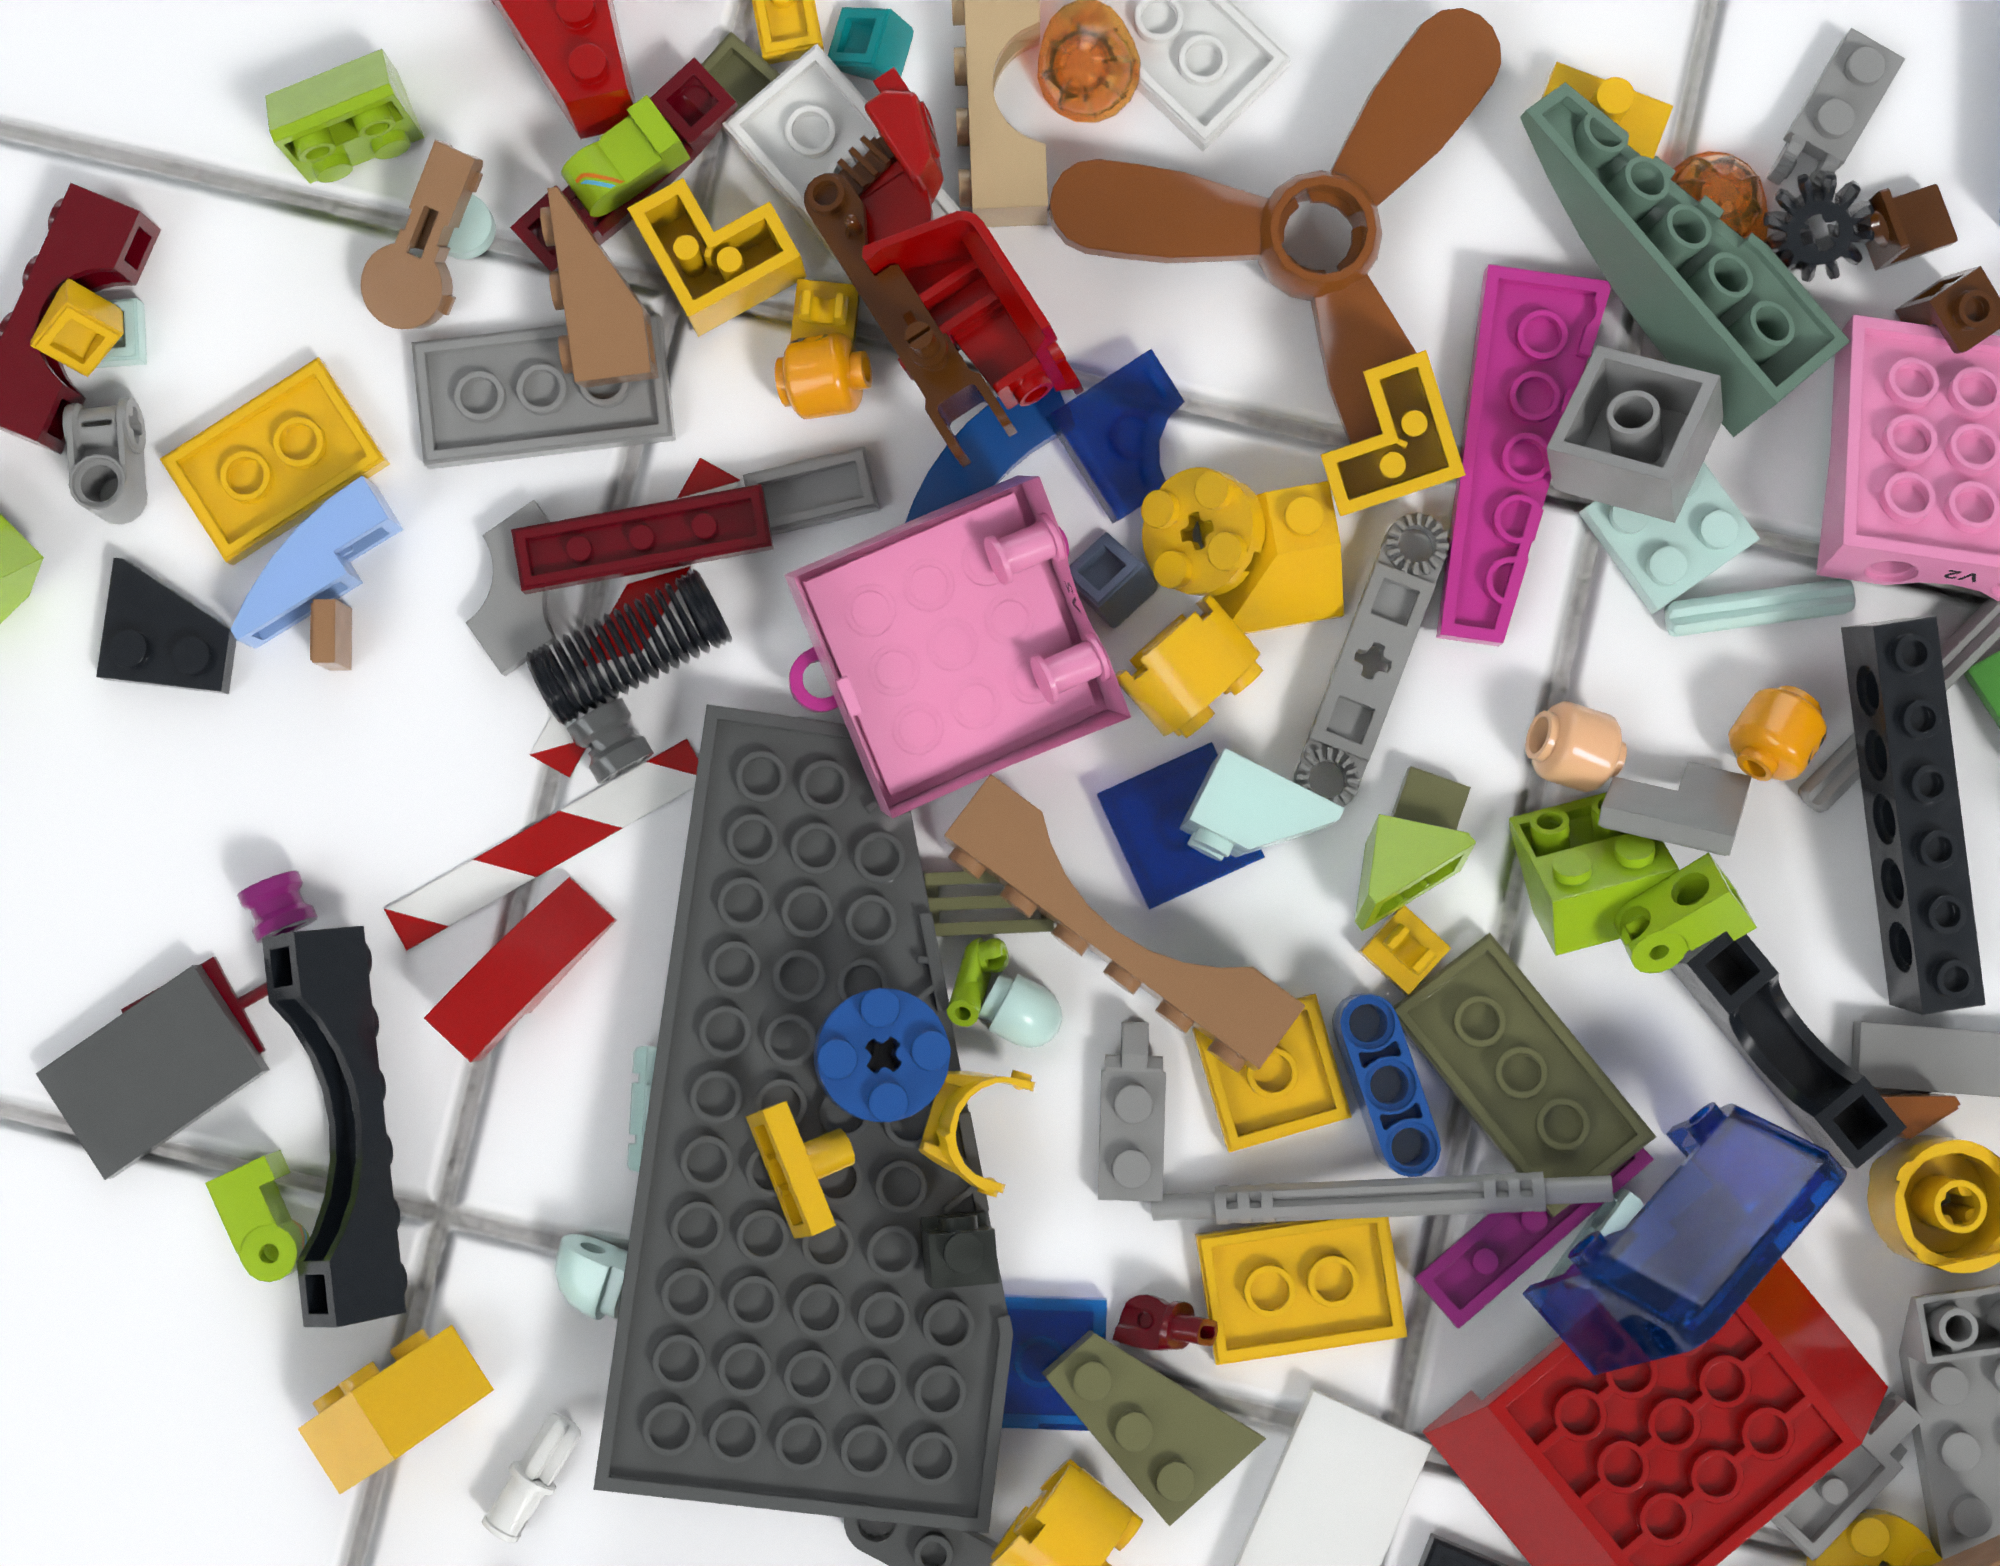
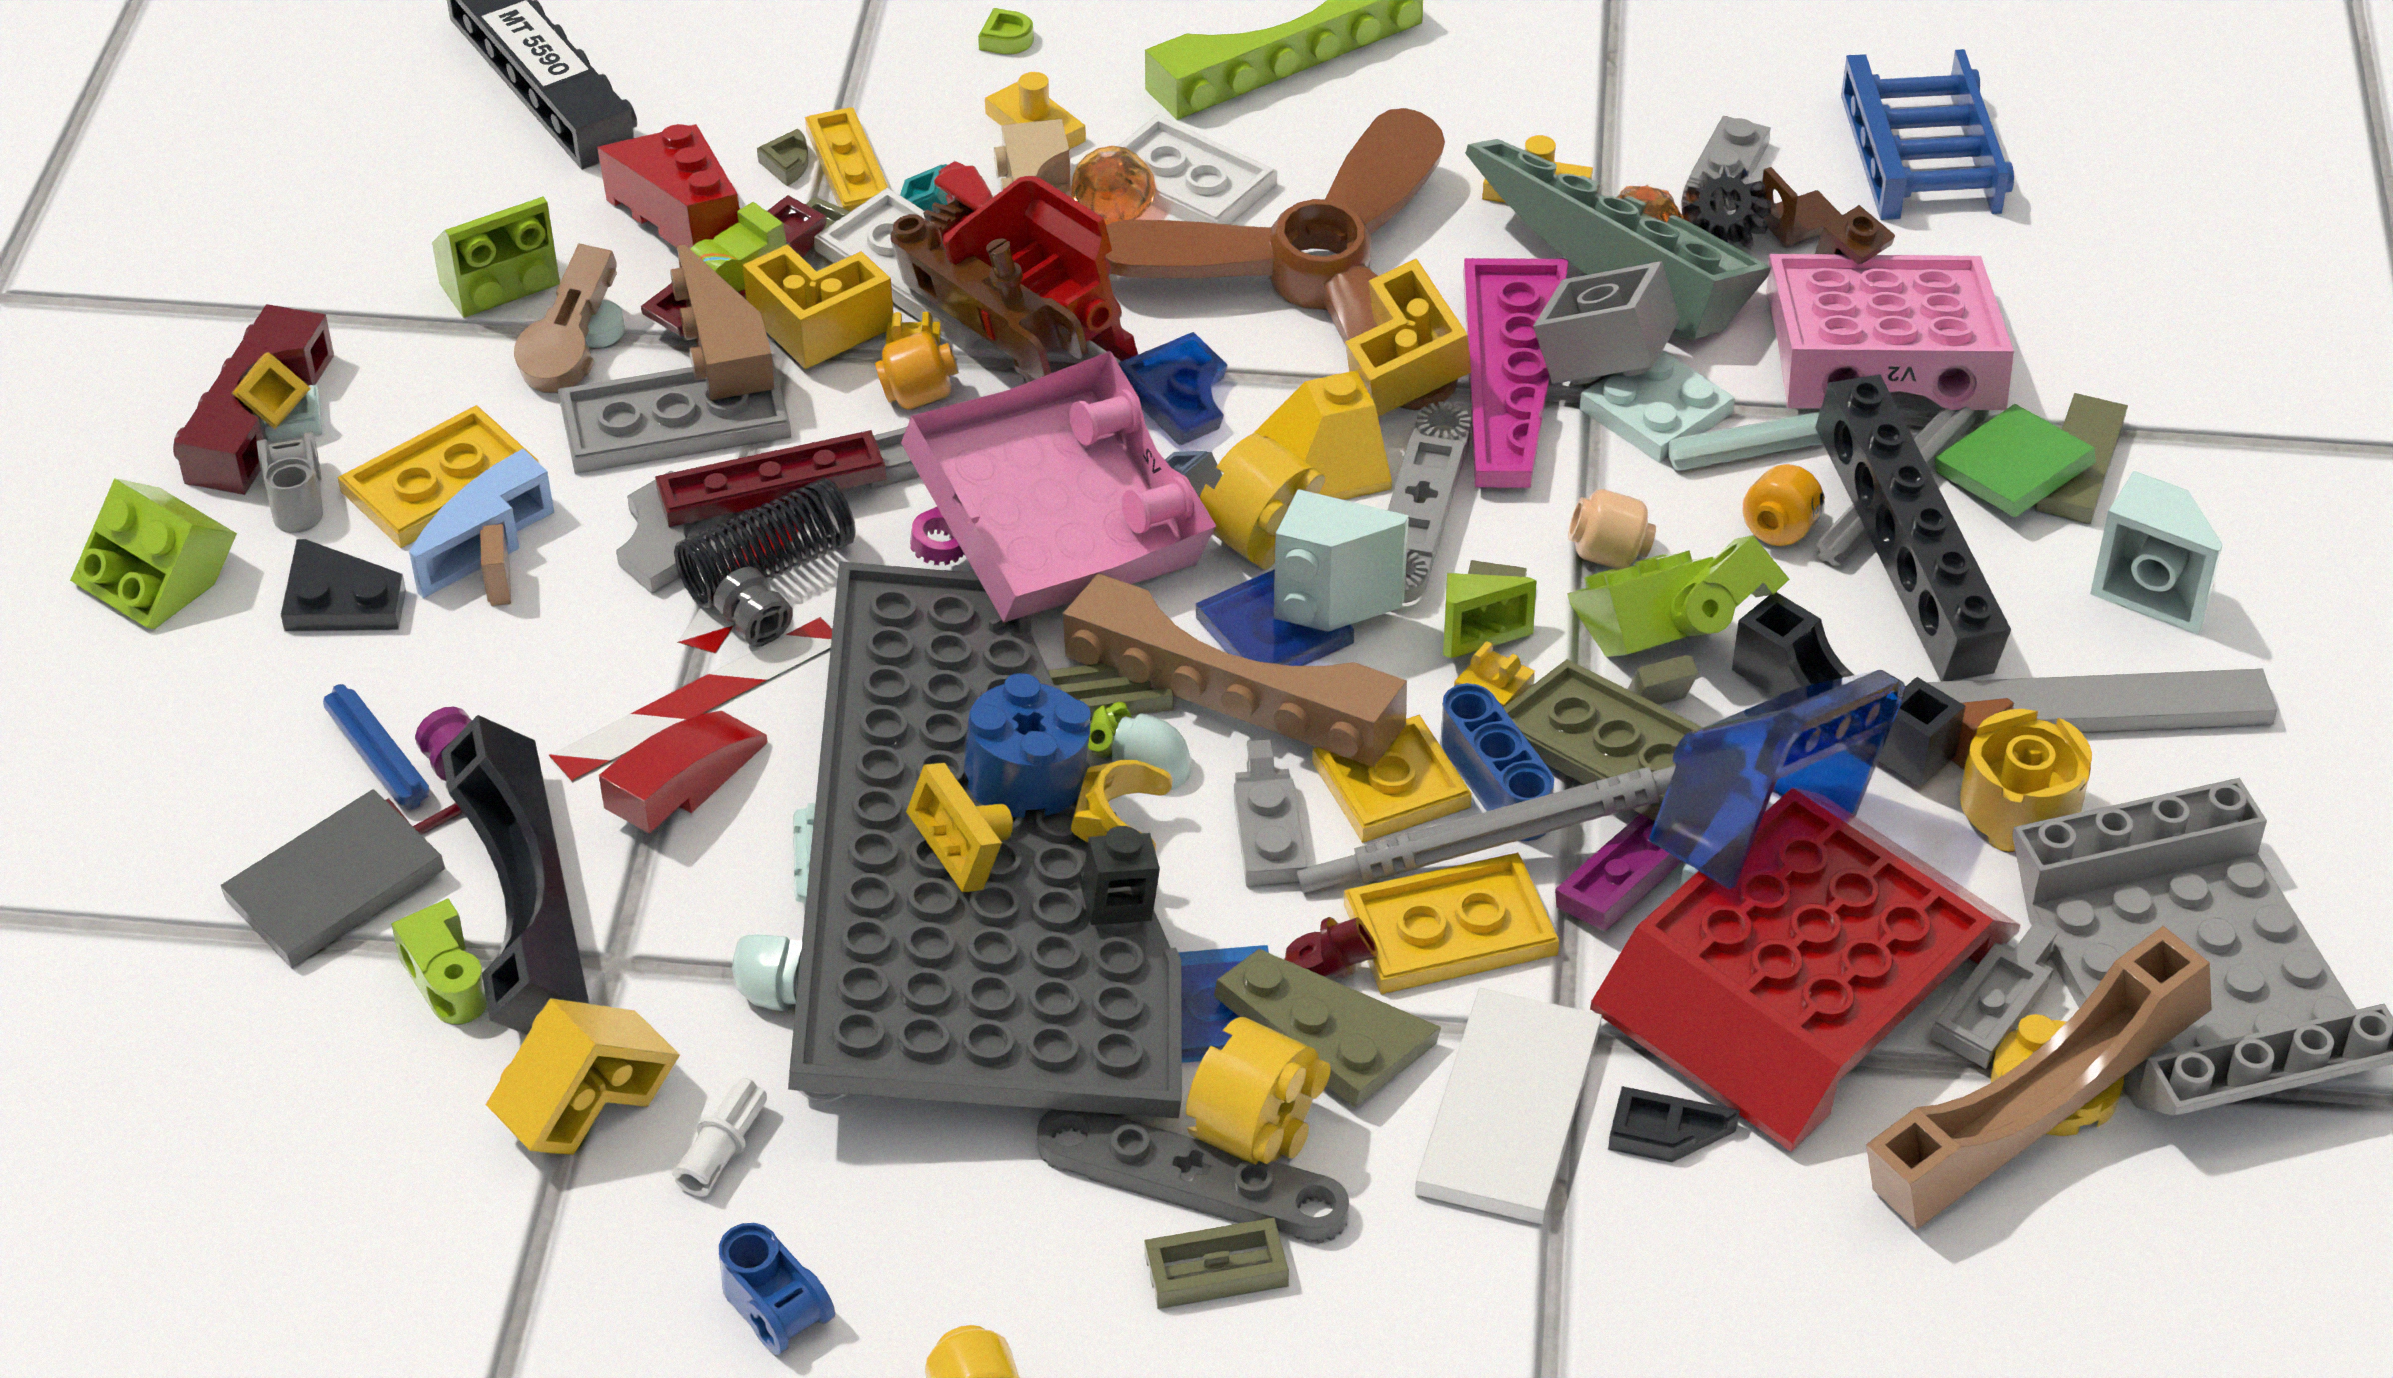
camera: 10 degrees left, 40 degrees down
(198, 886) = (376, 746): none -> blue axle
(1169, 526) = (1261, 398): yellow plate -> none
(1584, 993) = (1665, 680): none -> olive tile
(1697, 816) = (1700, 536): light grey tile -> none

